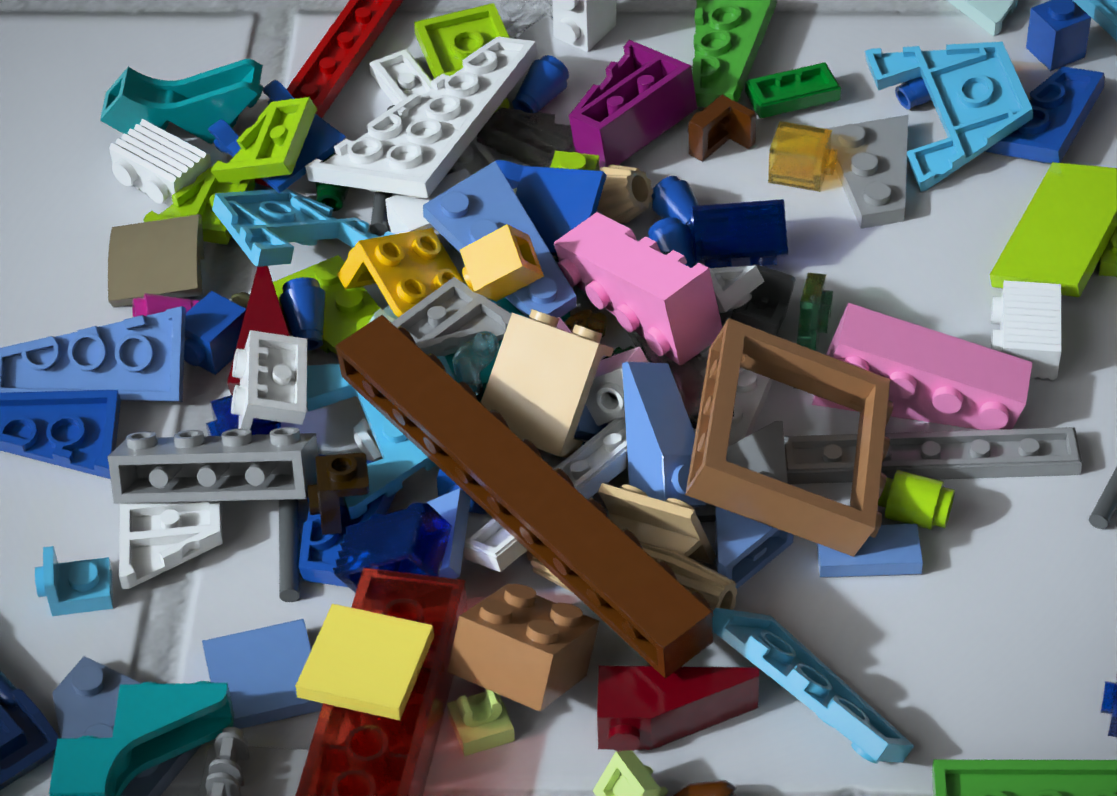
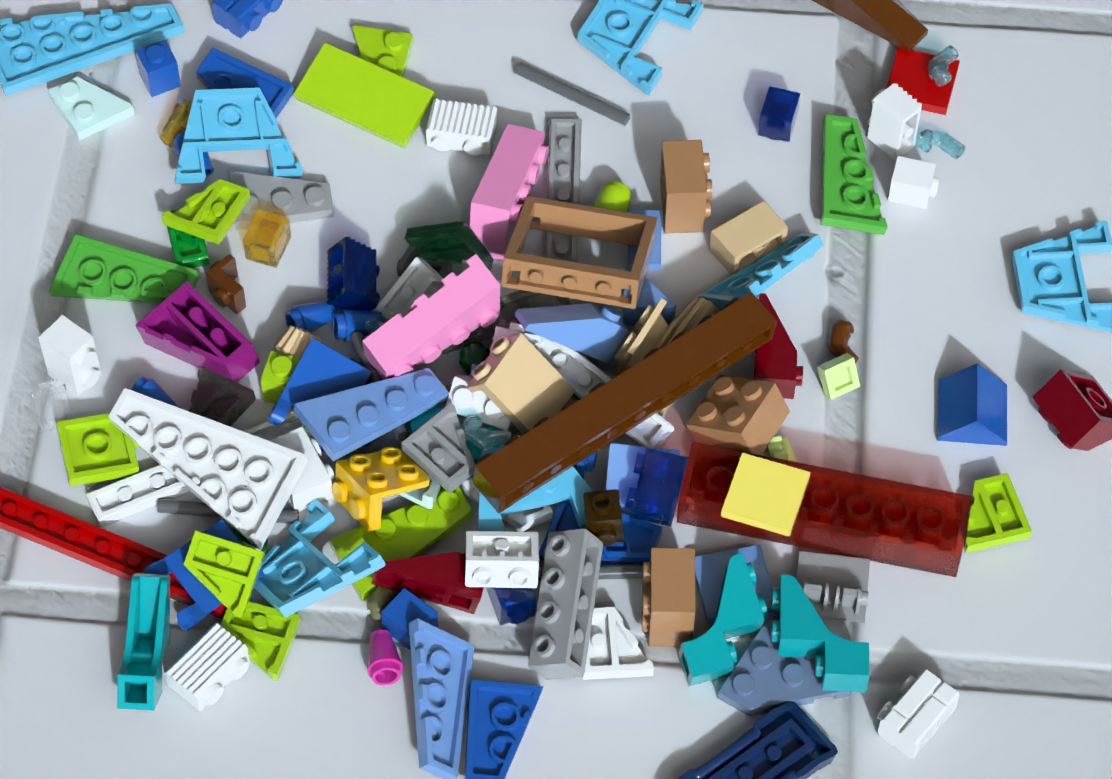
camera: 90 degrees left, 10 degrees up
(75, 584) = (649, 704): medium azure bracket -> none
(155, 259) = (322, 664): dark tan slope -> none
(187, 649) = (737, 614): none -> teal arch
(216, 577) = (669, 596): none -> medium nougat brick
(304, 309) = (402, 547): blue cone -> none
(500, 263) = (416, 399): yellow brick -> none
(824, 93) = (209, 212): none -> lime wing
(883, 666) = (747, 237): none -> tan brick
(953, 567) = (685, 186): none -> medium nougat brick

